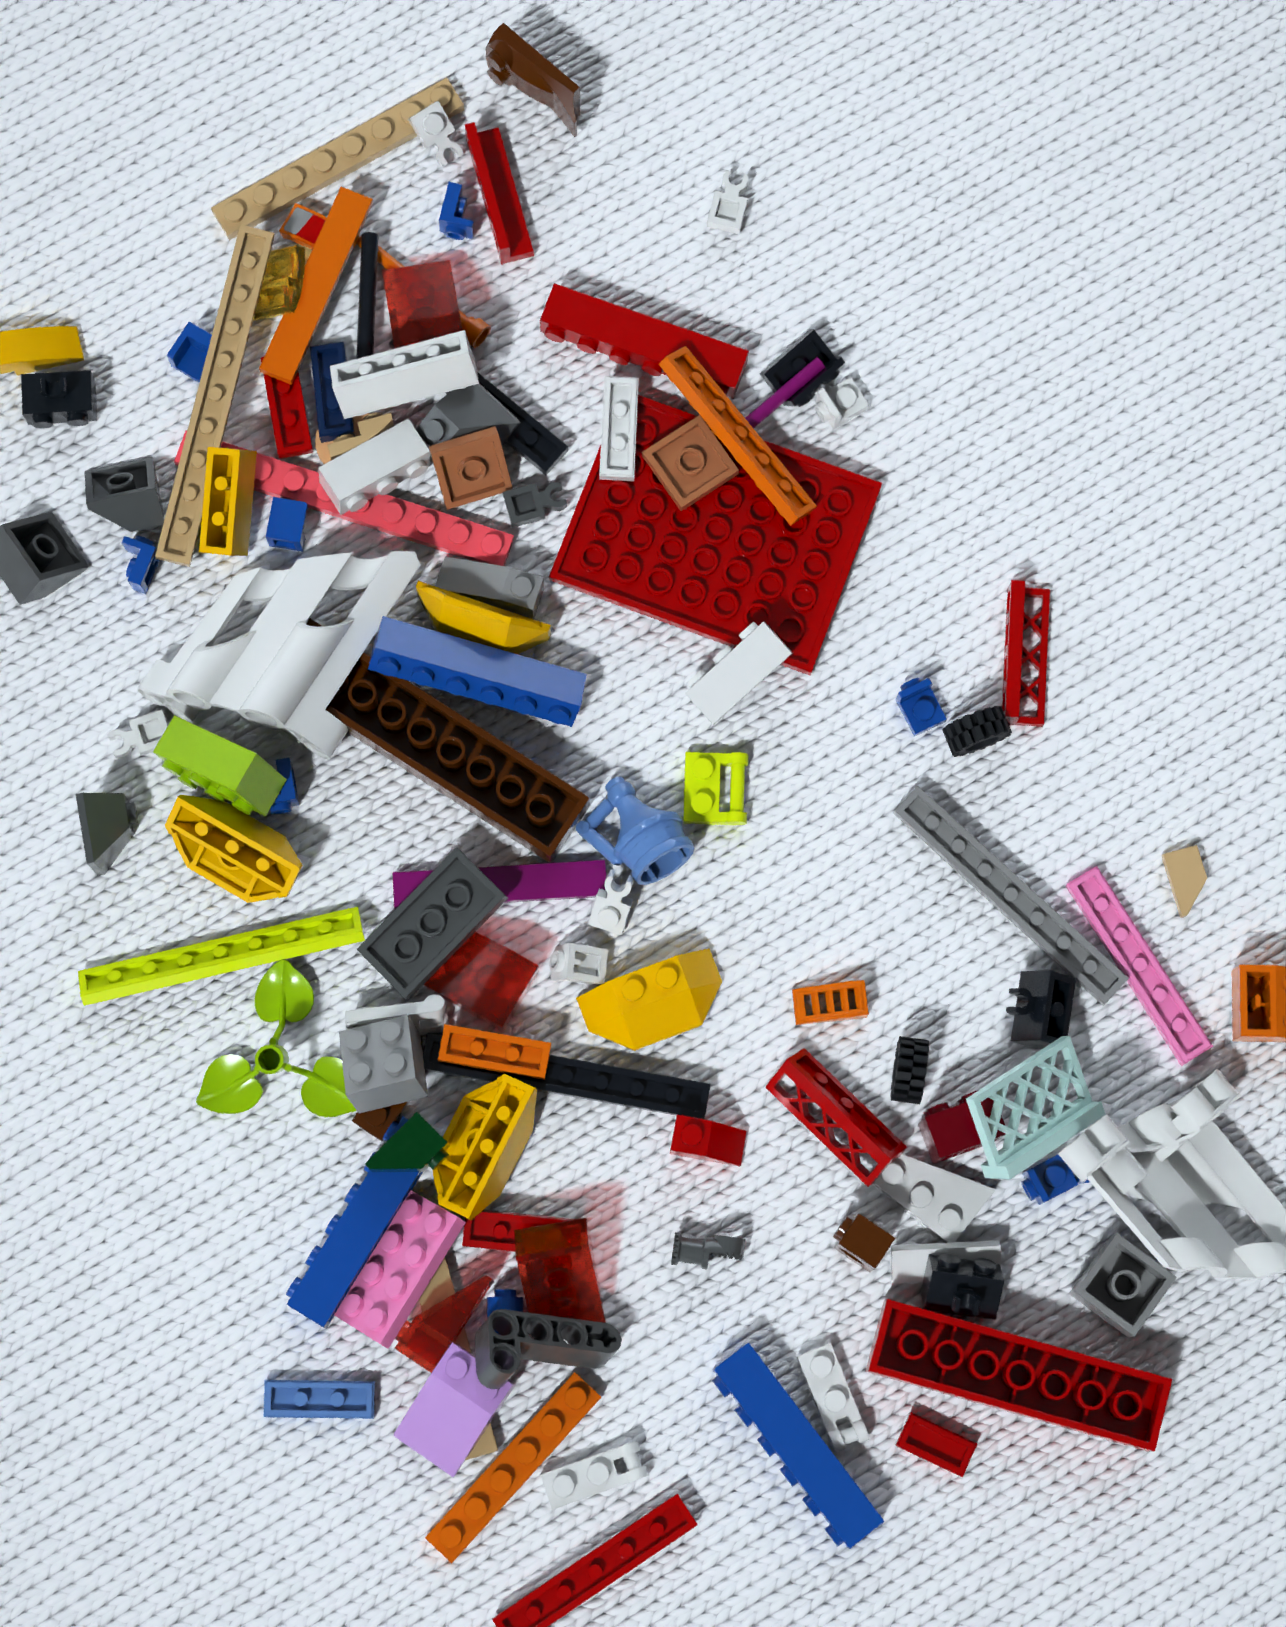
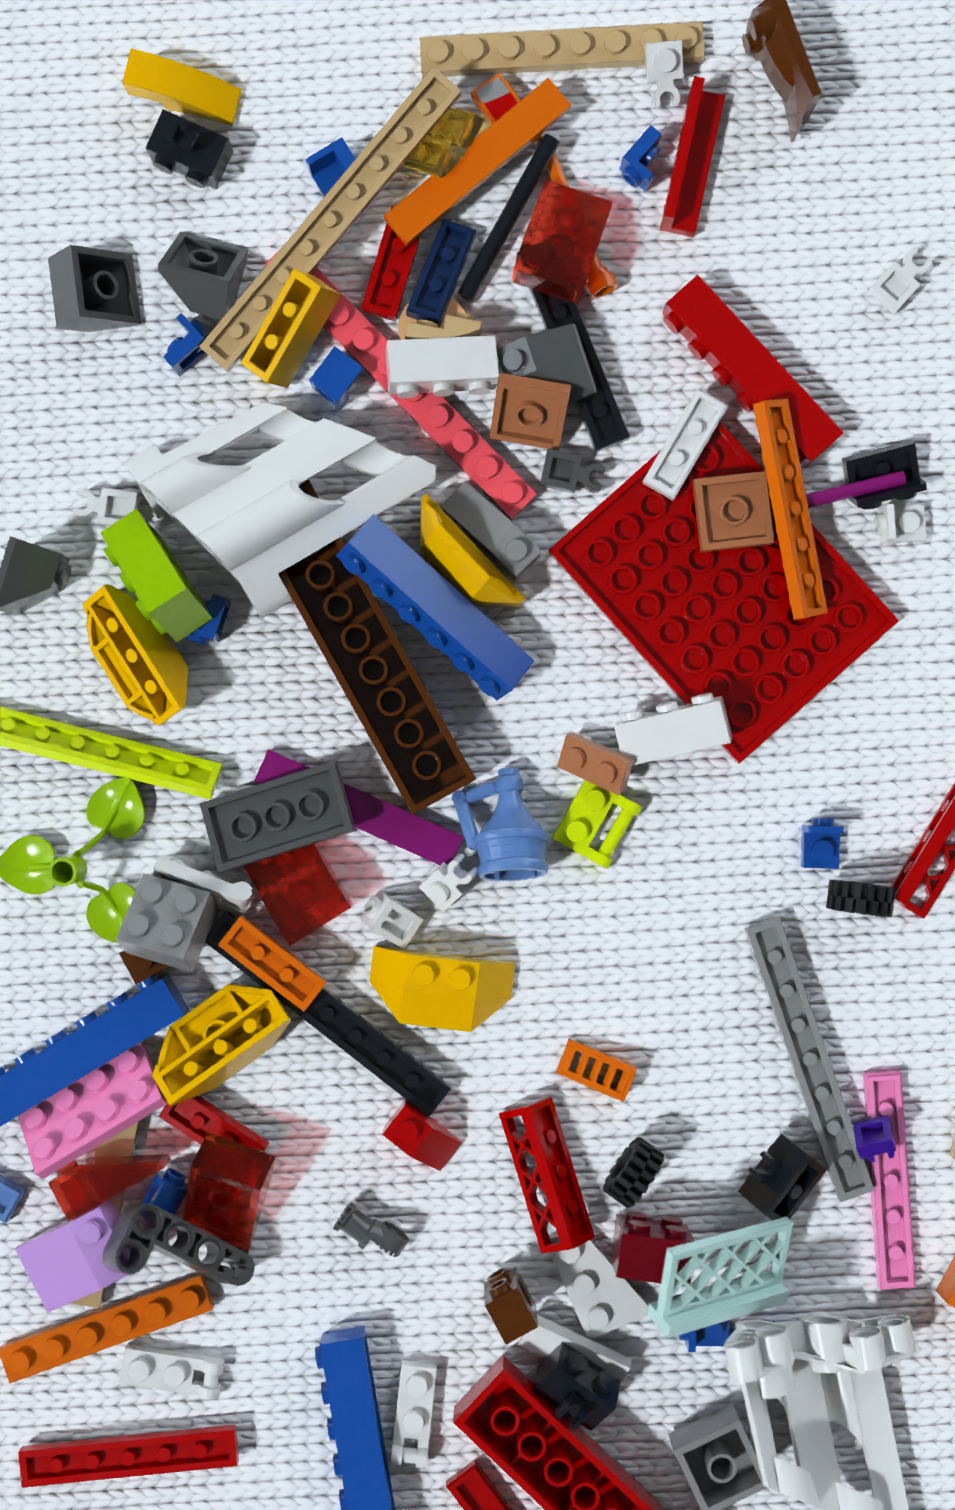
camera: 30 degrees right, 10 degrees up
(404, 374) = (511, 292): white brick -> none
(410, 1149) = (150, 1016): dark green slope -> none
(686, 735) = (595, 763): none -> nougat plate
(1102, 930) = (874, 1138): none -> dark purple tile

